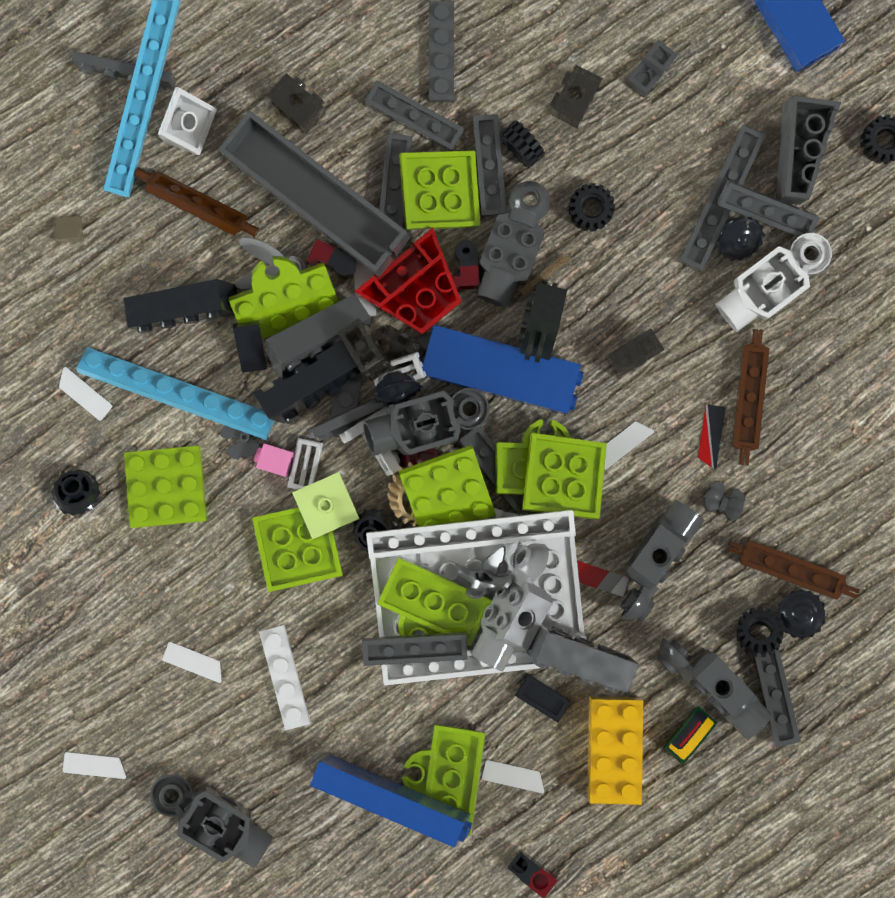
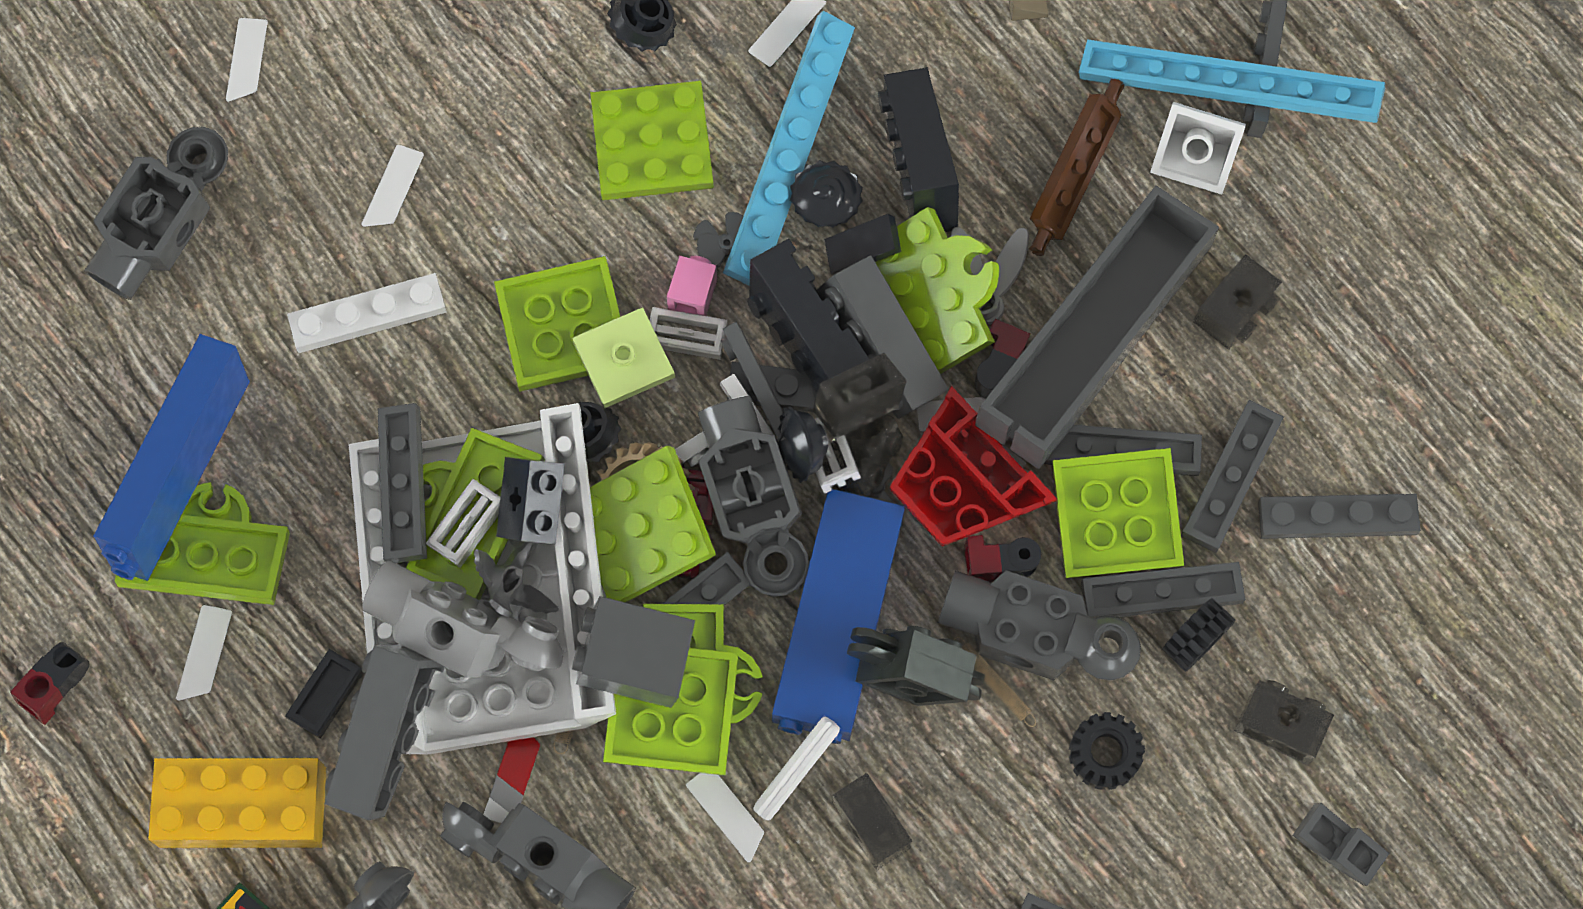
camera: 85 degrees right, 15 degrees down
(212, 369) = (826, 194): none -> black piece
(425, 593) = (477, 532): none -> white tile
(432, 564) = (530, 500): none -> black brick
(536, 497) = (633, 651): none -> dark grey brick
(601, 399) = (796, 768): none -> white axle

